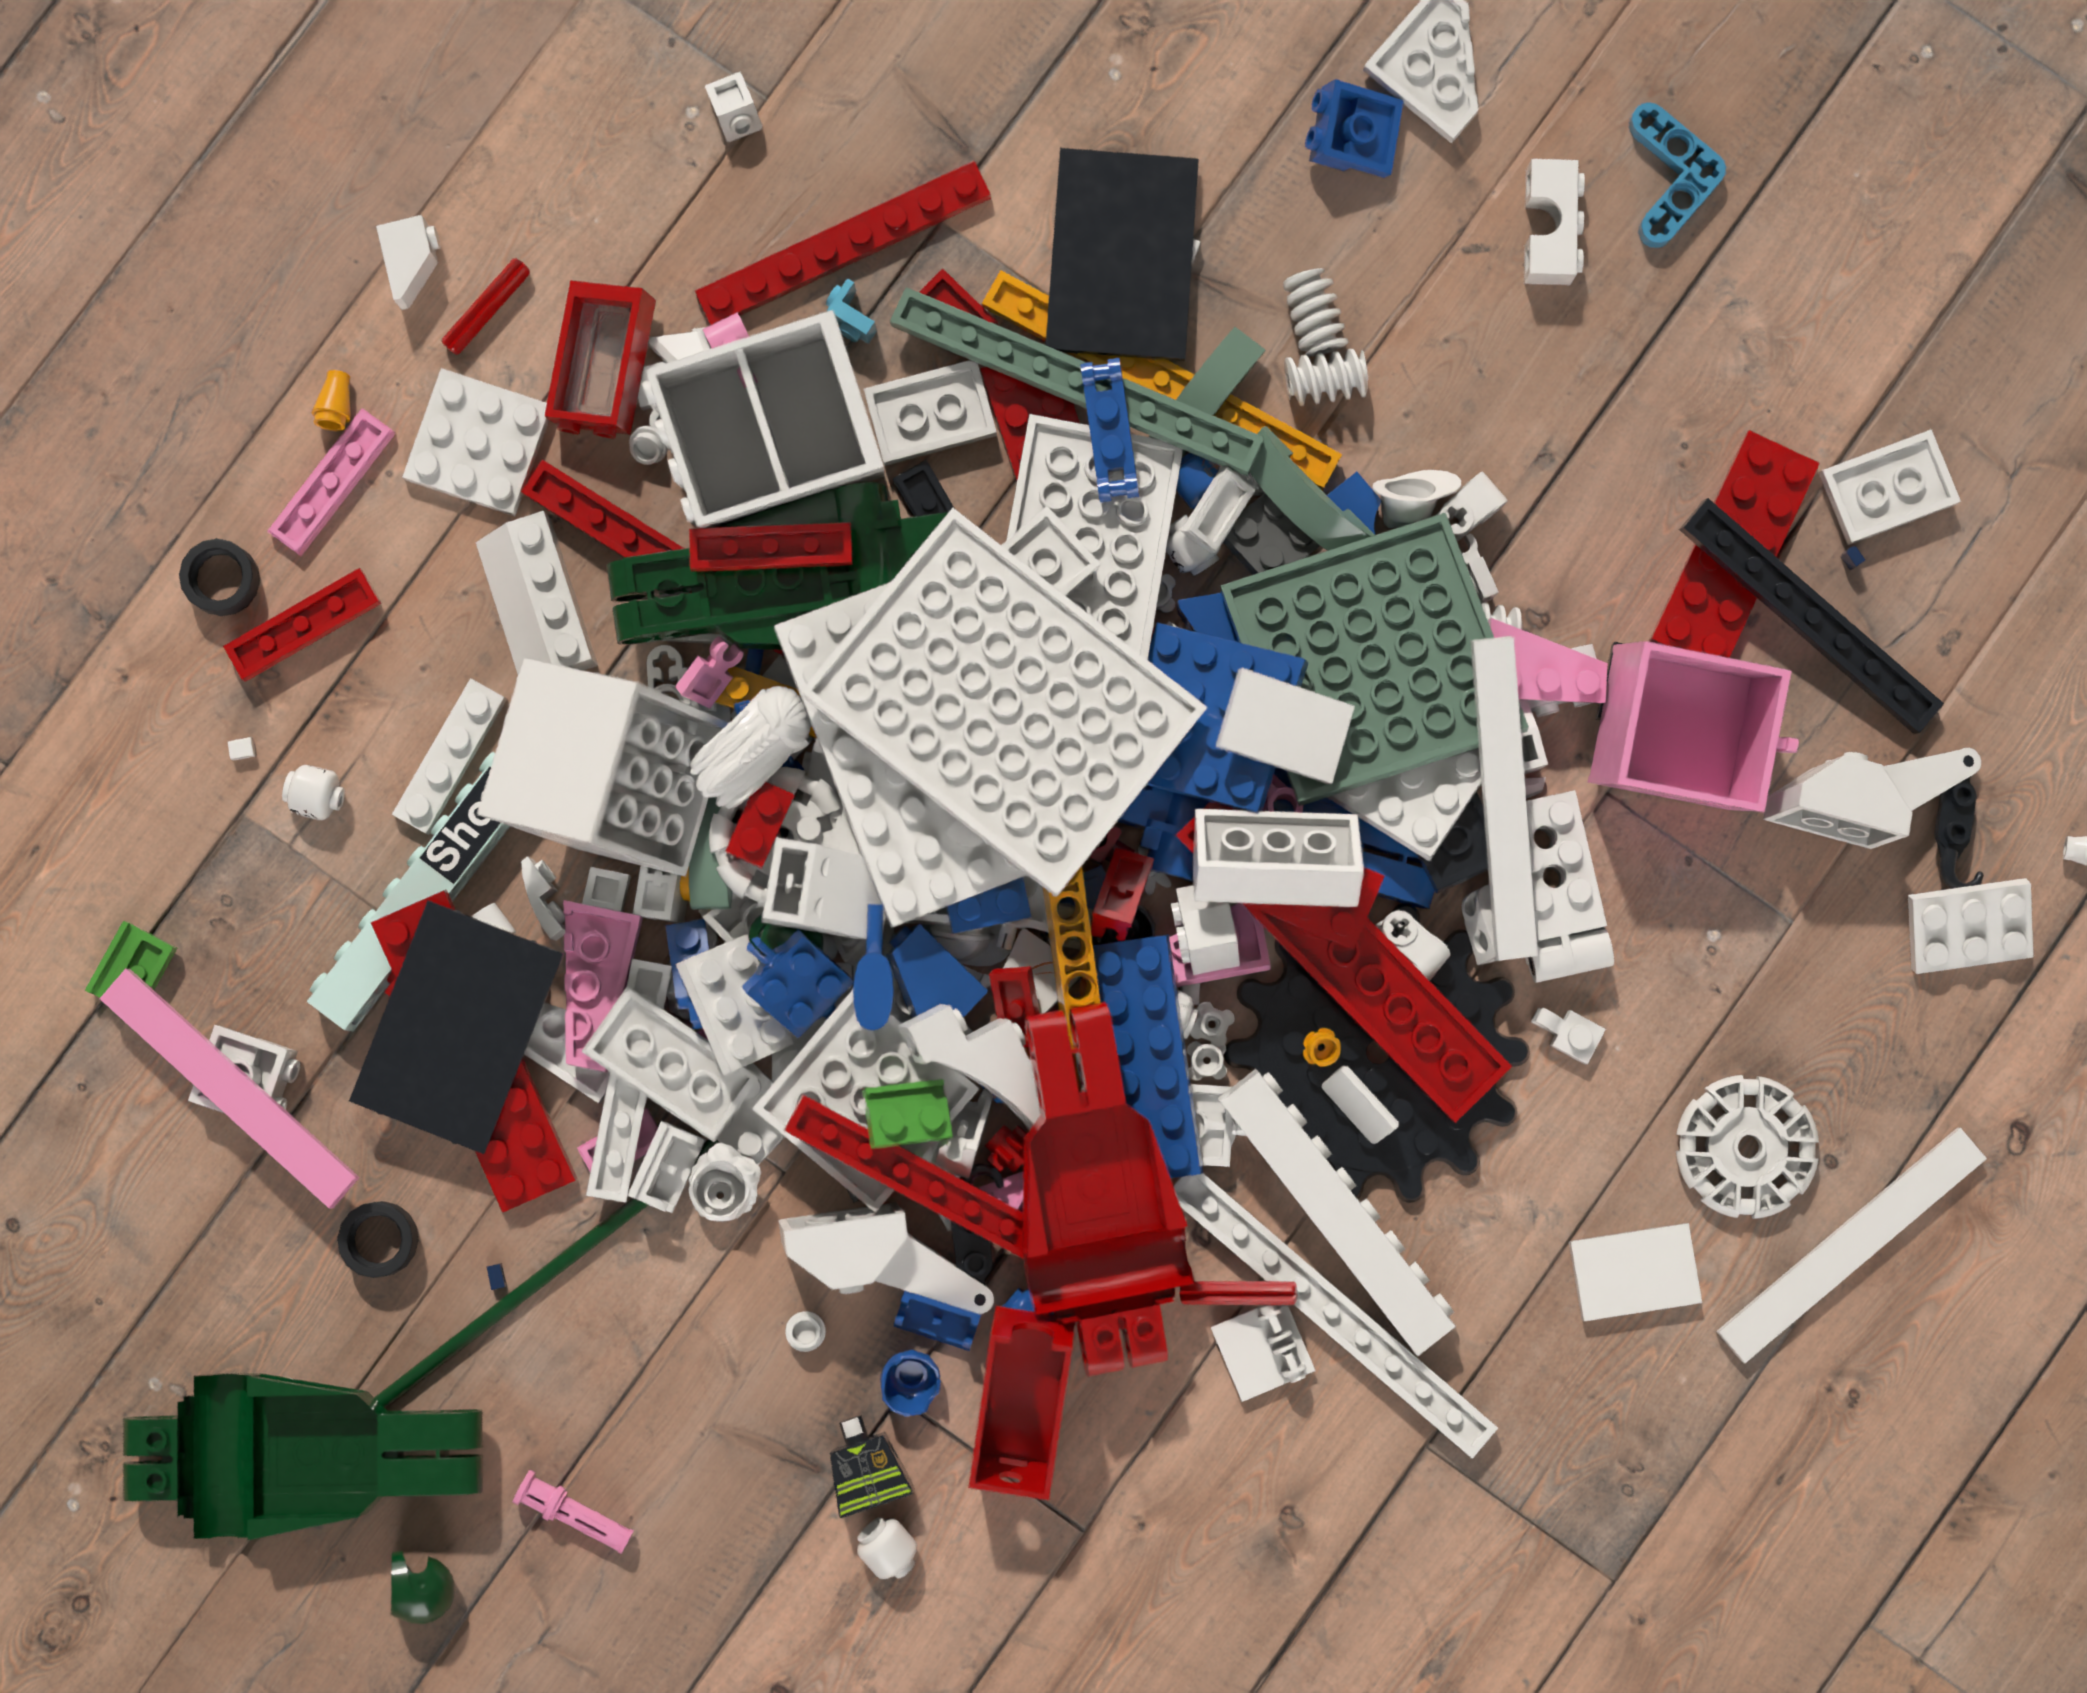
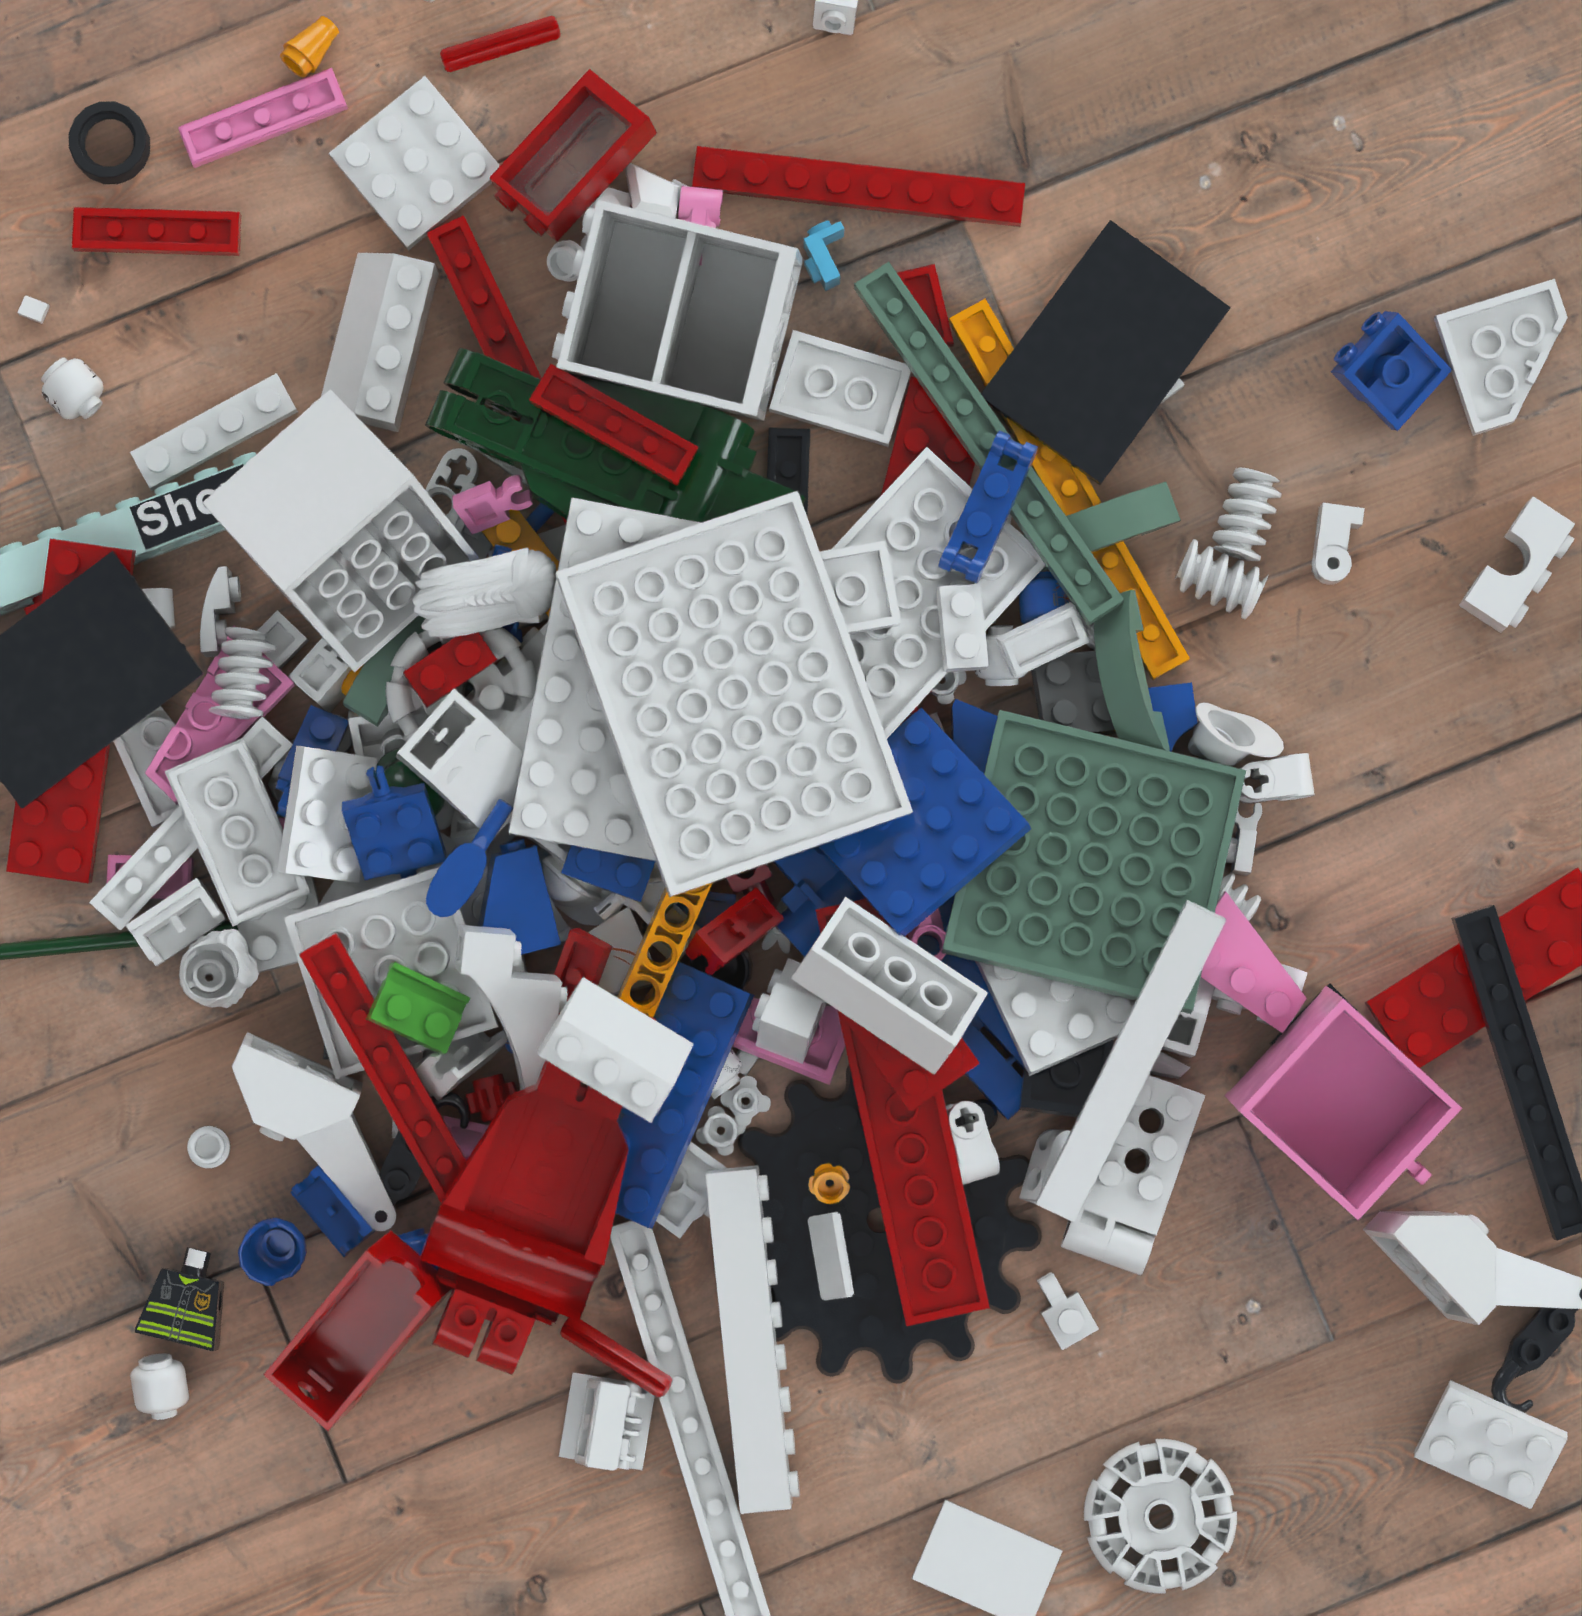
camera: 30 degrees right, 0 degrees up
(595, 934) = (242, 673): none -> white piece
(1091, 1046) = (616, 1049): none -> white slope
(1150, 539) = (962, 627): none -> white plate
(1262, 1354) = (602, 1424): none -> white slope
(1285, 726) = (971, 872): white tile -> none
(1394, 292) = (1330, 554): none -> white leg

